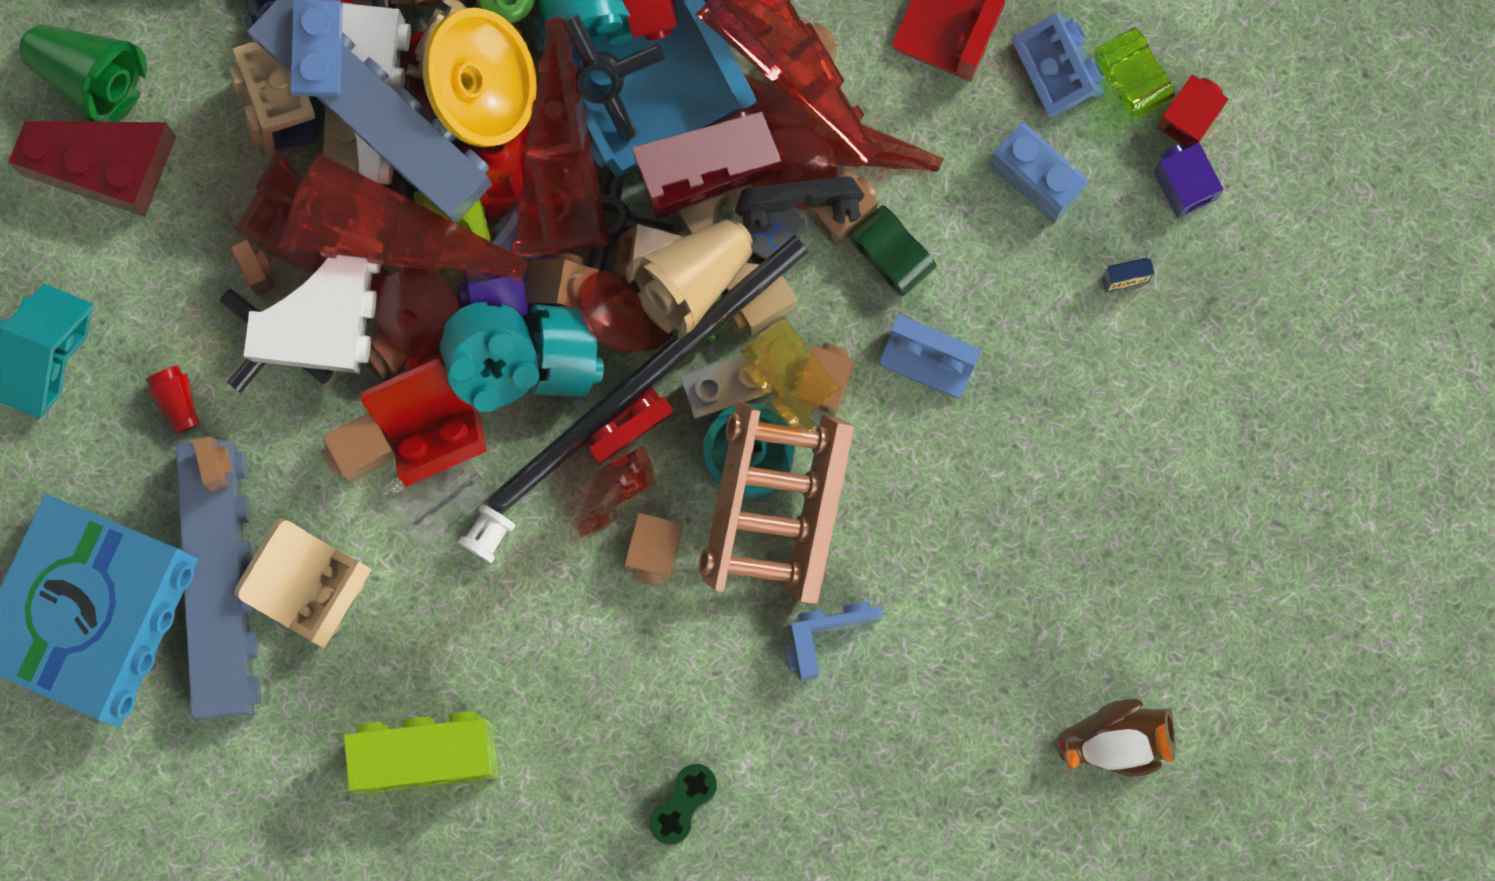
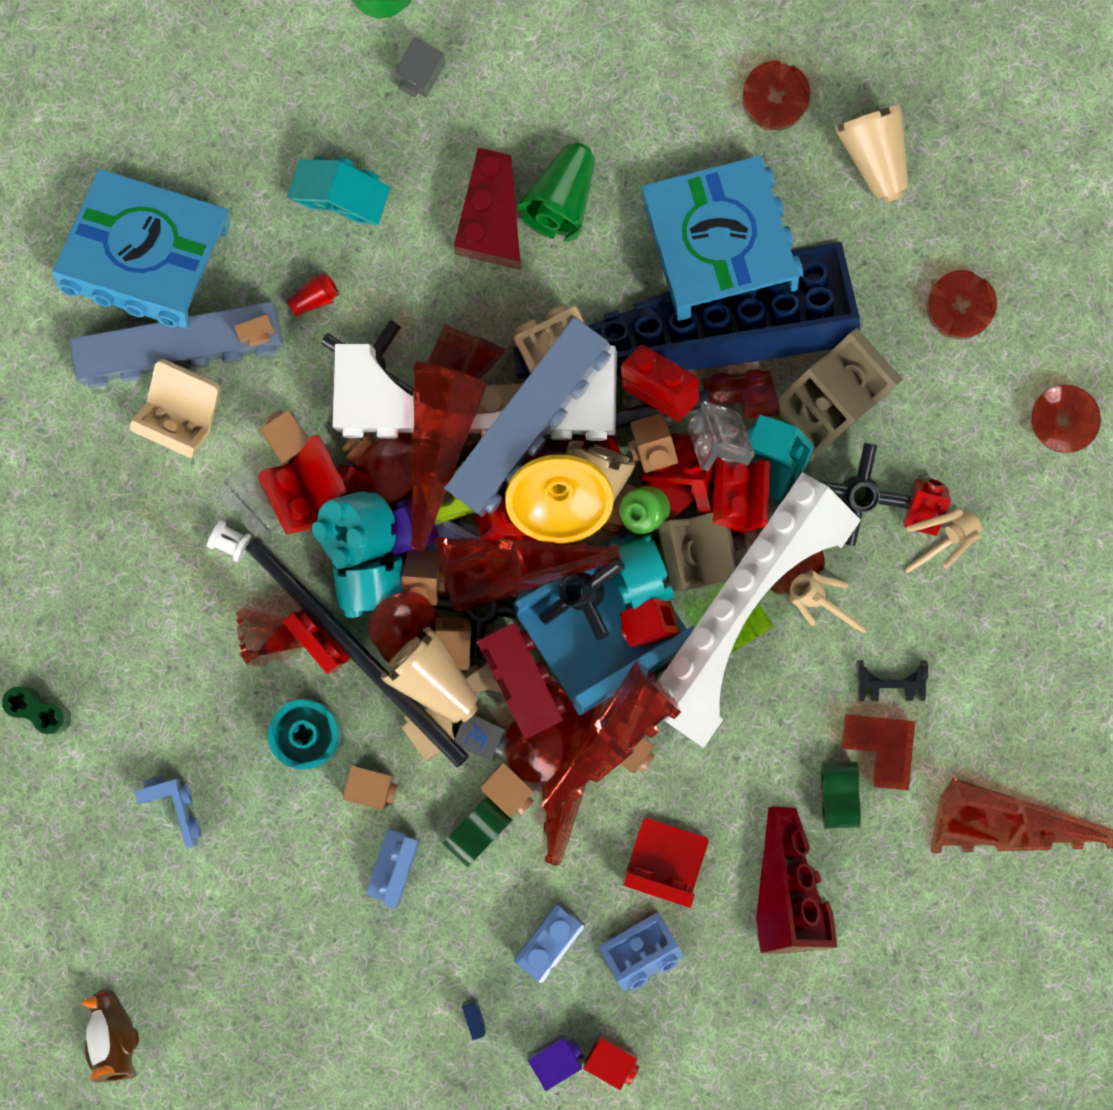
camera: 90 degrees right, 5 degrees up
(254, 266) = (419, 342): medium nougat plate -> none
(316, 48) = (563, 371): medium blue plate -> none
(420, 753) = (53, 511): lime brick -> none
(653, 549) = (225, 669): medium nougat brick -> none
(718, 388) = (355, 715): light grey brick -> none
(789, 369) = (357, 759): clear yellow bracket -> none
(810, 530) = (246, 787): nougat fence -> none
(838, 192) = (509, 787): black piece -> none
(1134, 73) = (639, 1013): clear neon green axle -> none

